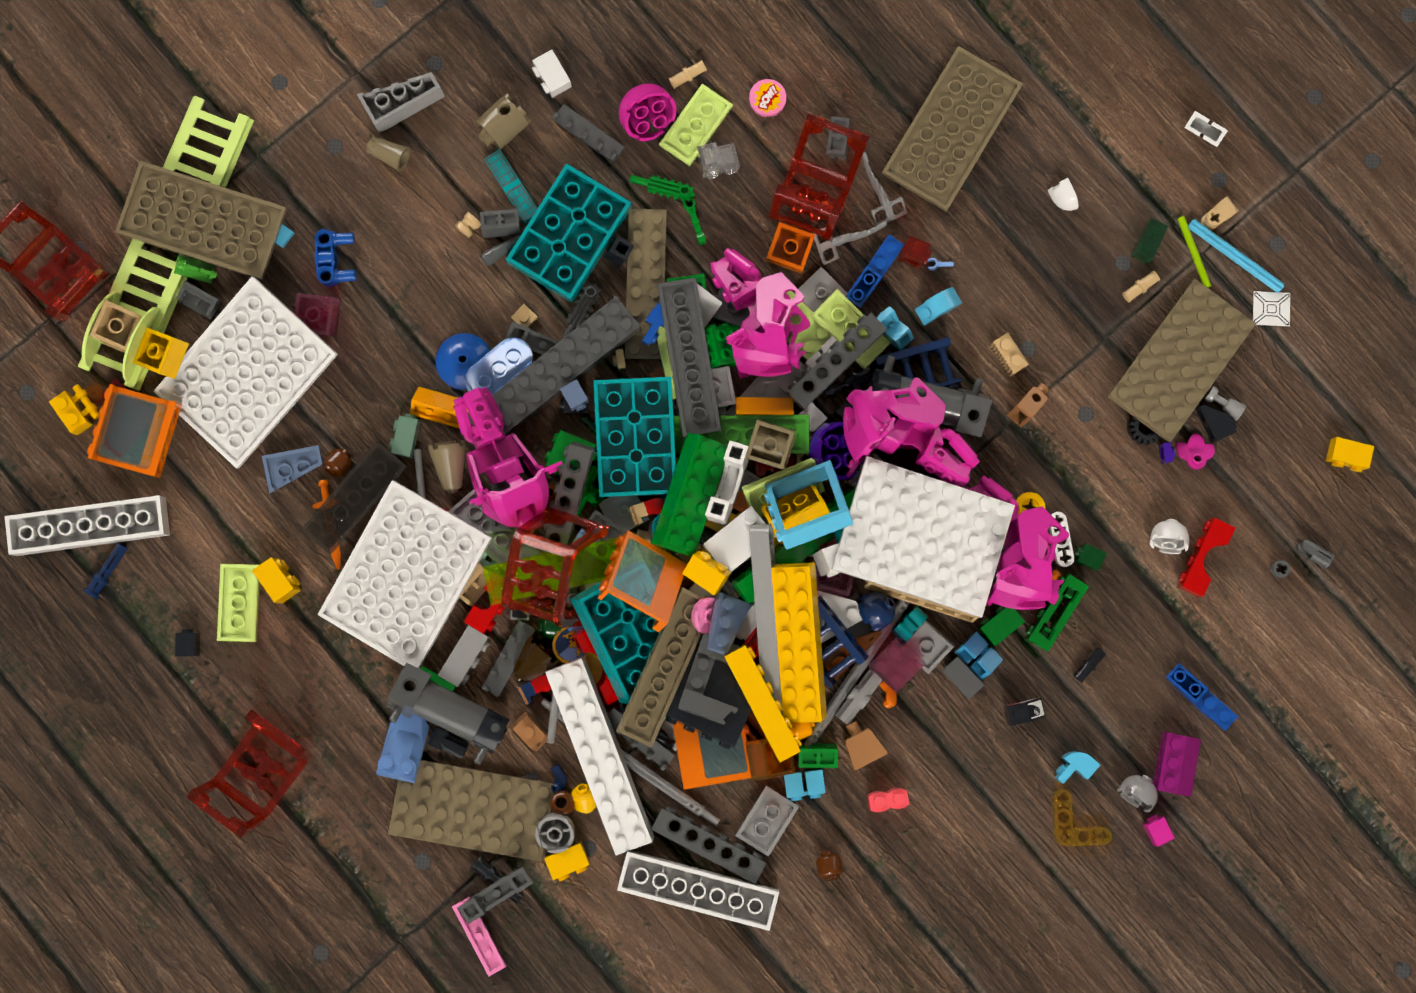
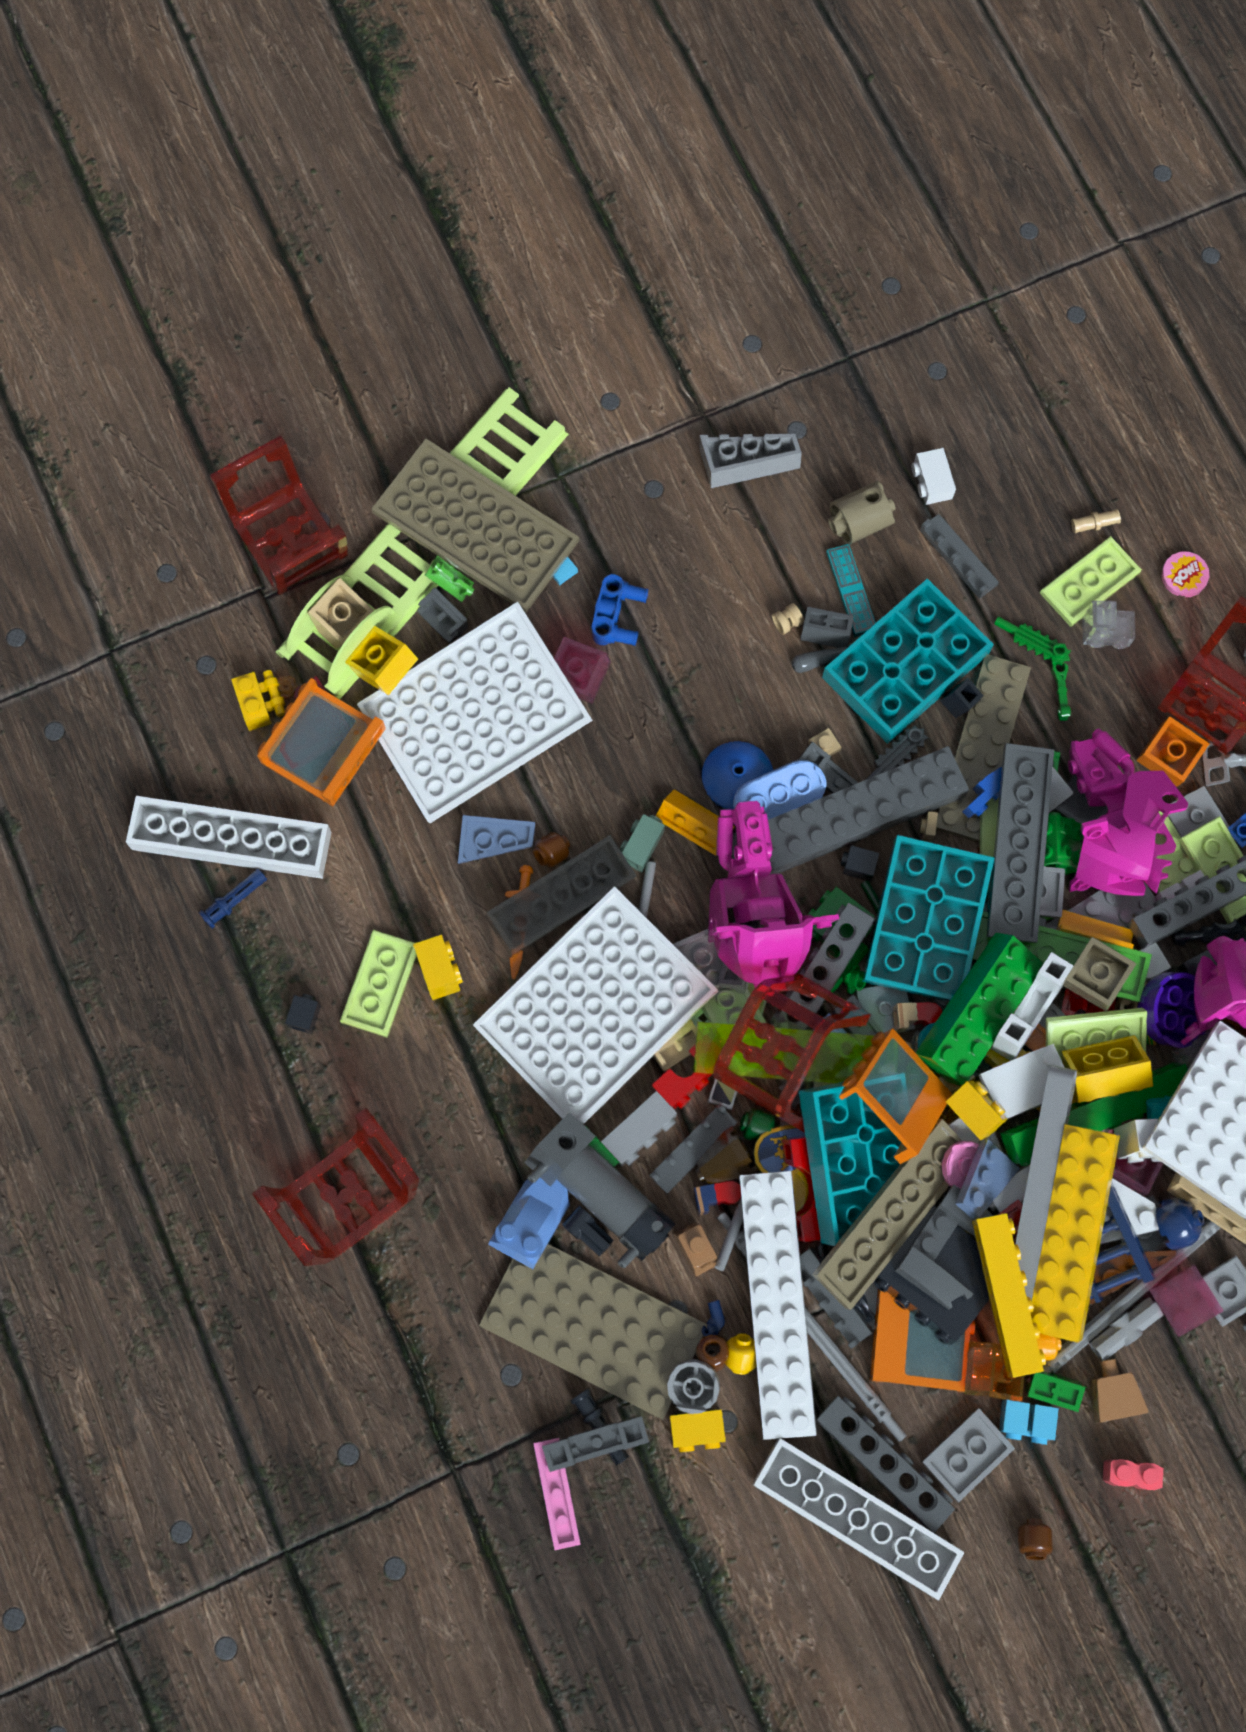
camera: 20 degrees right, 10 degrees down
(389, 152) = (717, 511): dark tan plant -> none
(449, 463) = (687, 889): dark tan cone -> none
(574, 396) = (866, 849): sand blue brick -> none
(646, 102) = (1038, 540): dark pink cylinder -> none
(816, 527) = (1137, 1087): medium azure window -> none
(891, 696) = (1168, 1337): orange arm -> none
(910, 623) = (1214, 1255): teal leg -> none

